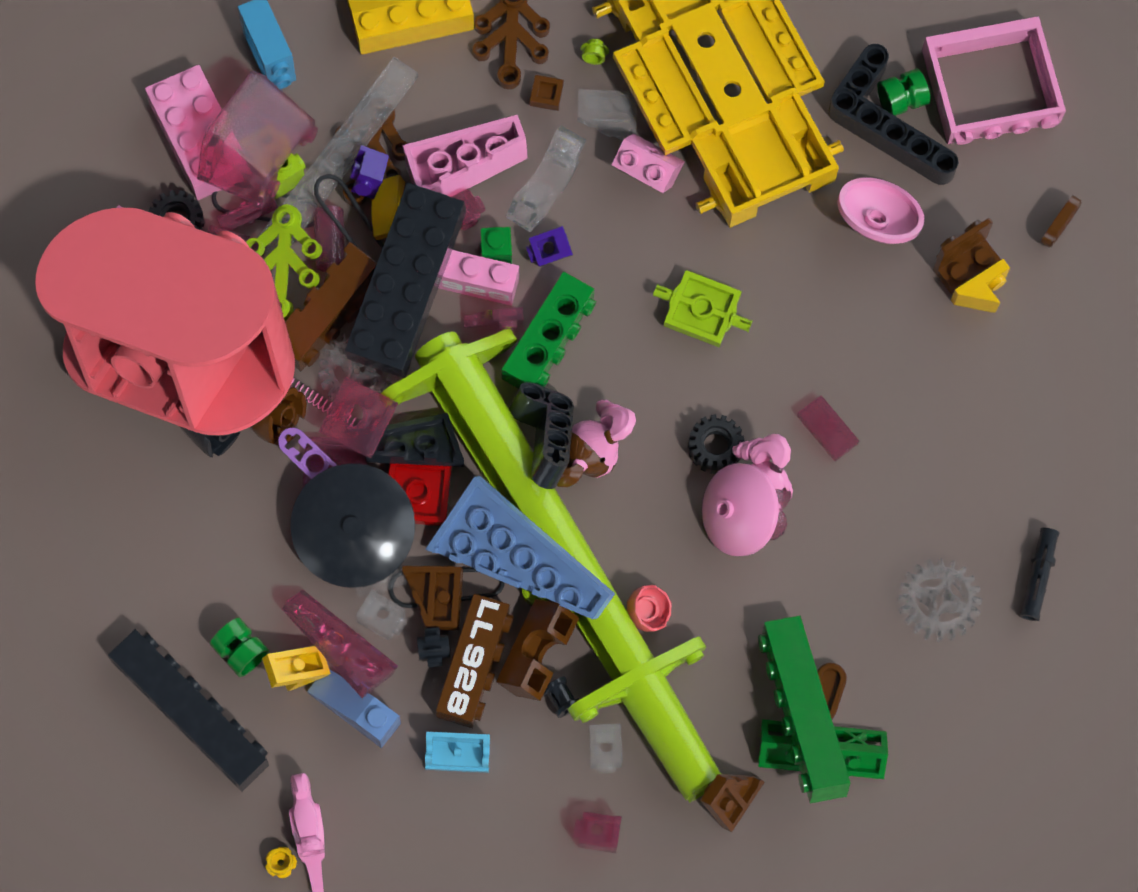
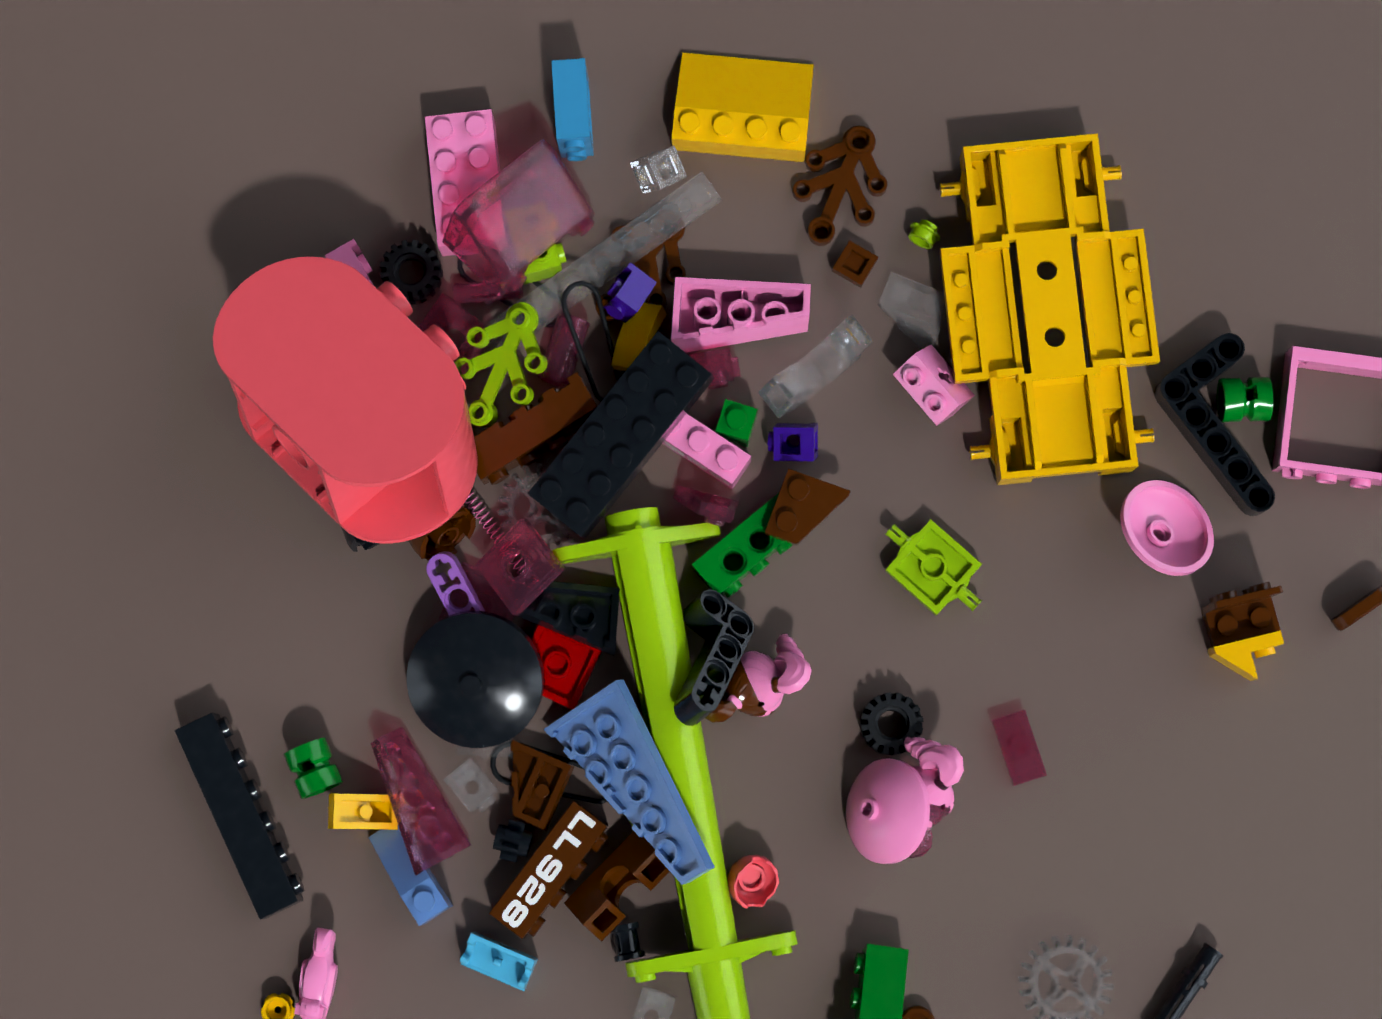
camera: 30 degrees right, 10 degrees up
(356, 69) = (658, 169): none -> clear brick
(577, 291) = (802, 506): none -> reddish brown wing

